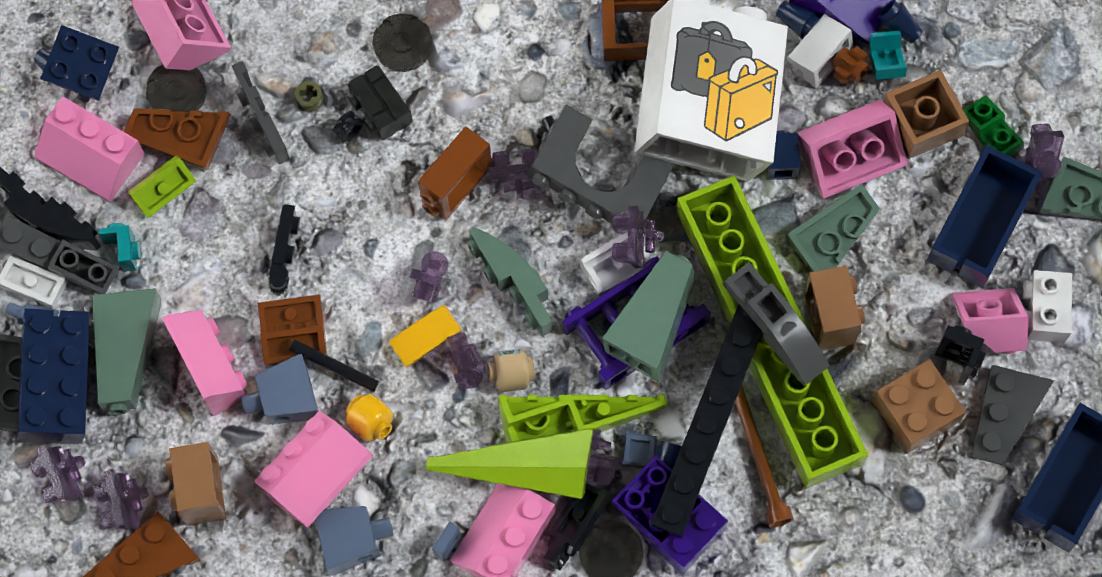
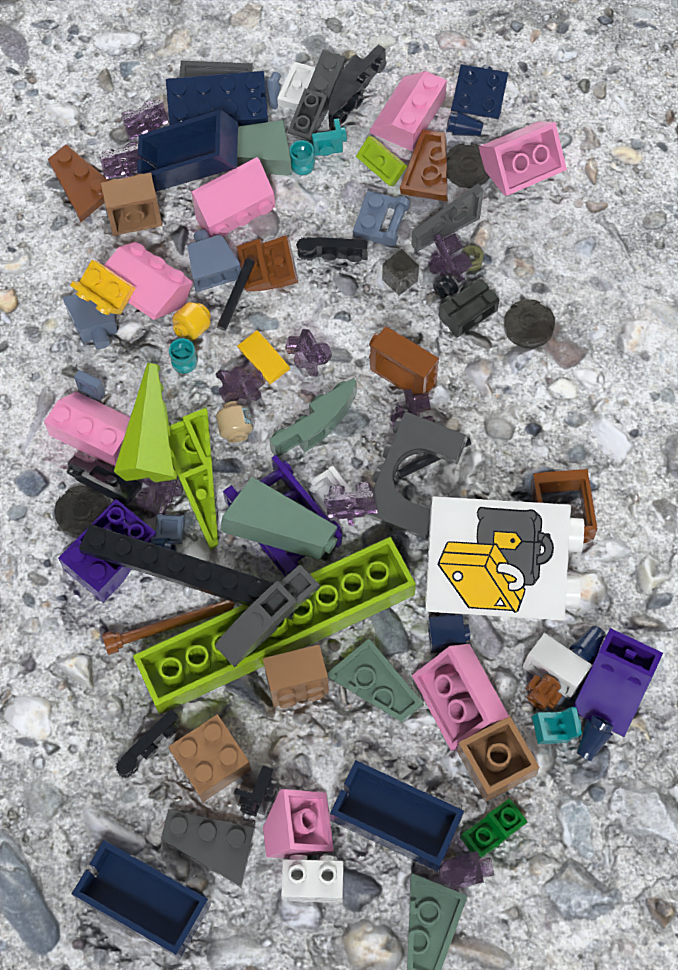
camera: 85 degrees right, 5 degrees down
(120, 90) = (463, 125): none -> dark blue cone
(137, 405) = (189, 150): none -> dark blue piece
(140, 274) = (302, 157): none -> teal wheel
(236, 203) = (373, 215): none -> sand blue plate
(296, 118) = (455, 265): none -> clear purple hips
(325, 173) = (400, 272): none -> clear smoke brick
(328, 512) = (103, 288): none -> yellow bracket
(415, 422) = (183, 355): none -> teal wheel
(901, 474) = (147, 744): none -> black hinge

